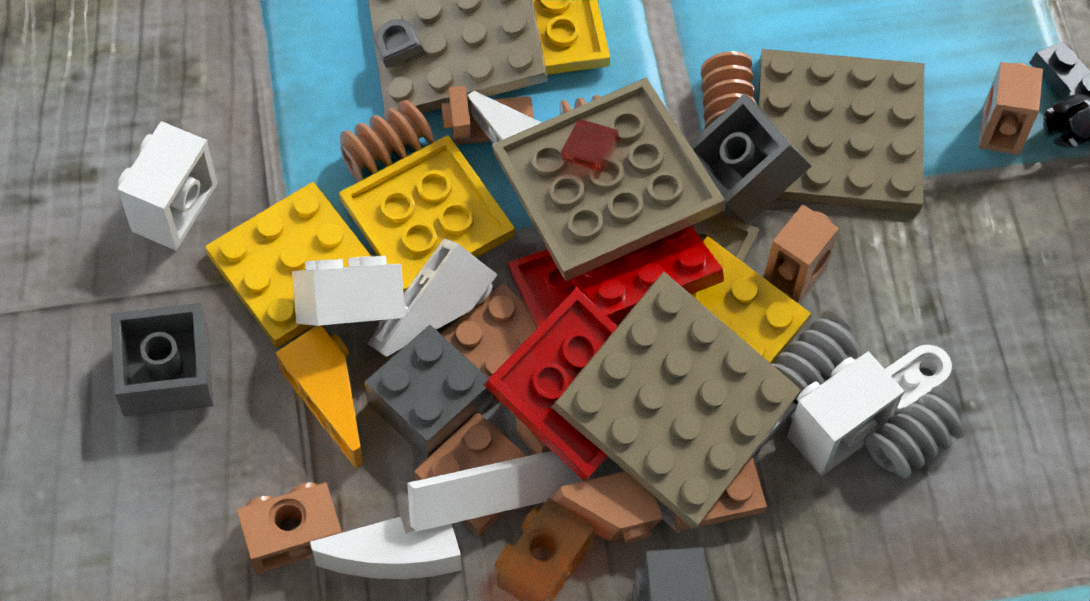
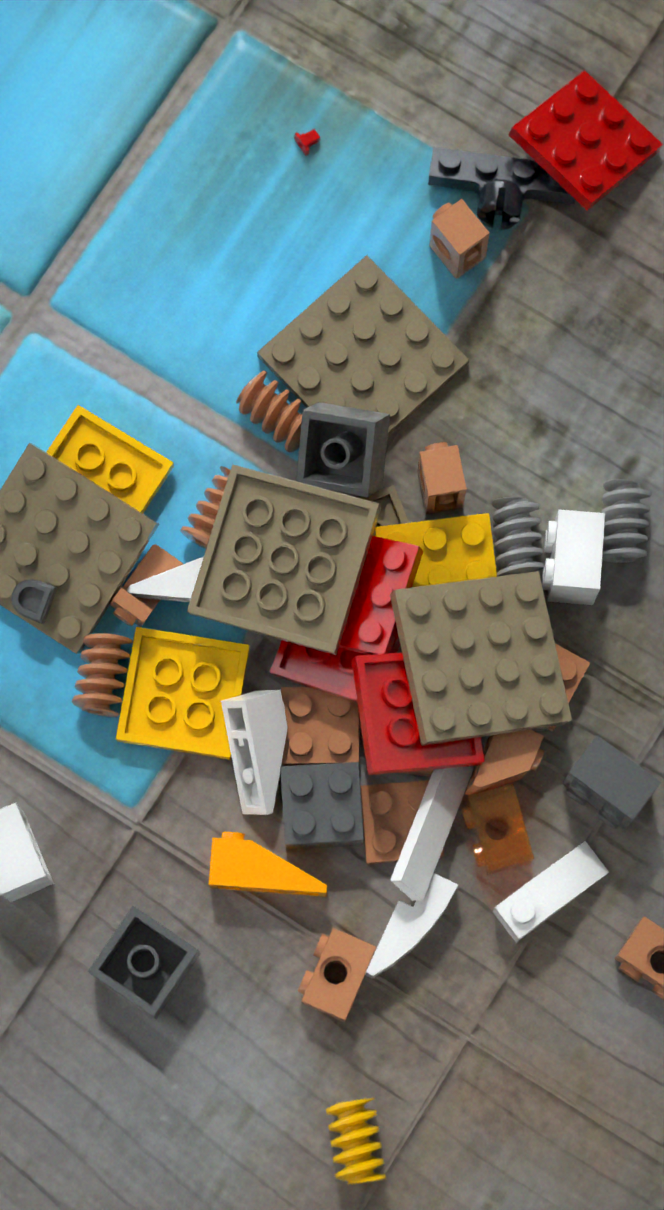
camera: 45 degrees left, 15 degrees up
(267, 248) = (139, 812): yellow plate -> none
(356, 293) = (212, 802): white brick -> none
(590, 145) = (255, 551): clear red tile -> none
(912, 381) = (580, 489): white plate -> none

